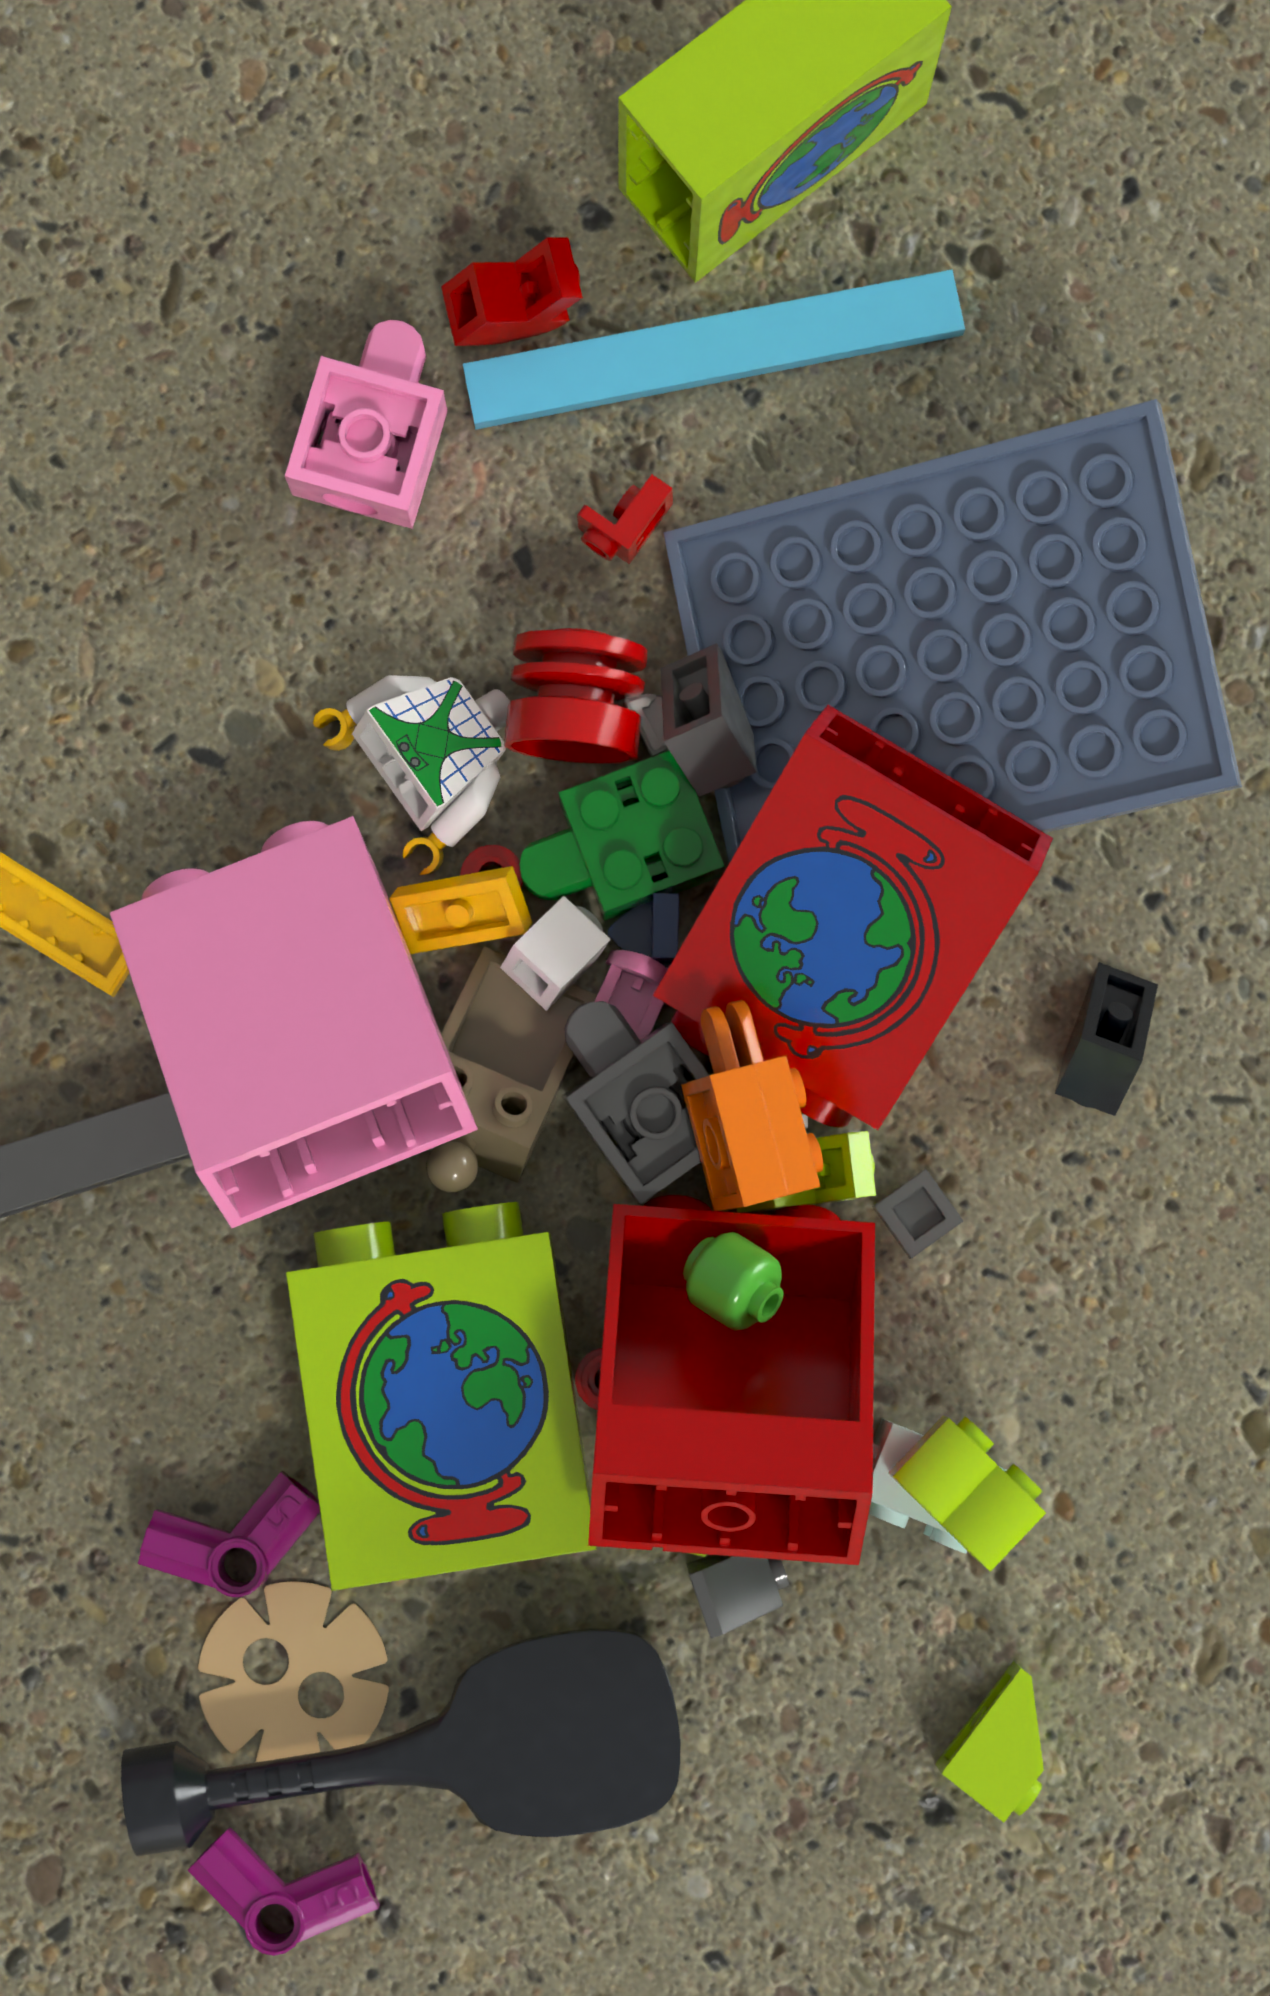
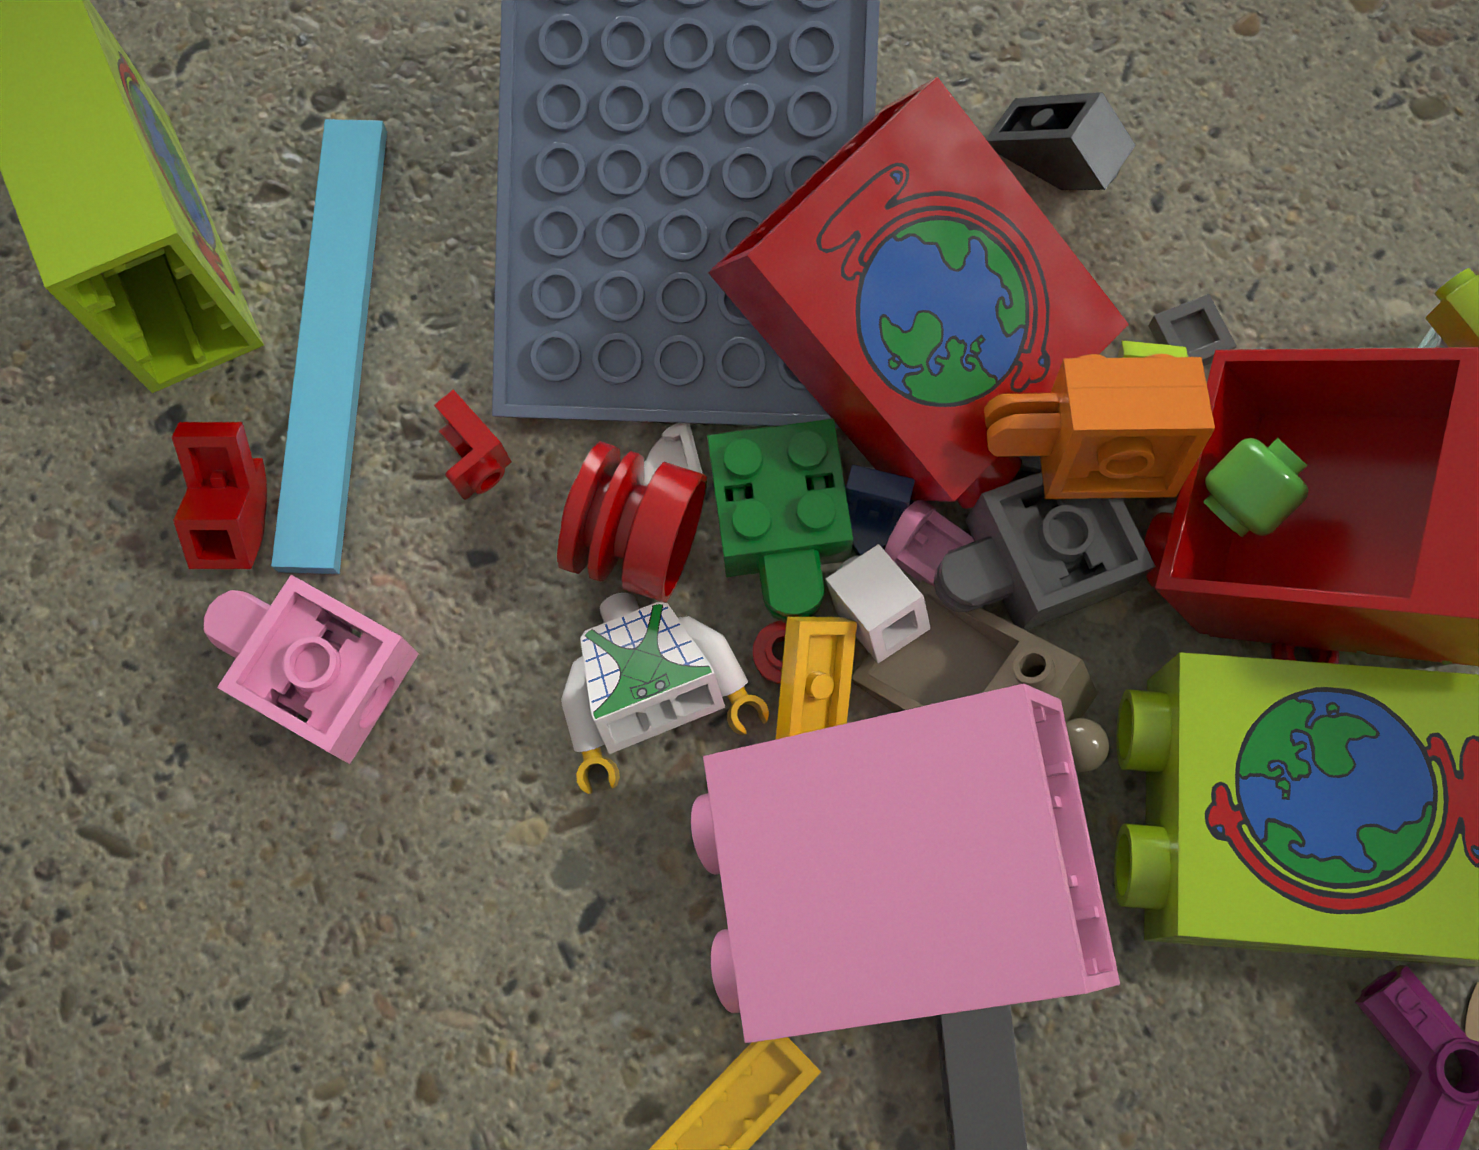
camera: 70 degrees left, 10 degrees down
(706, 721) = (686, 405): dark grey slope -> none

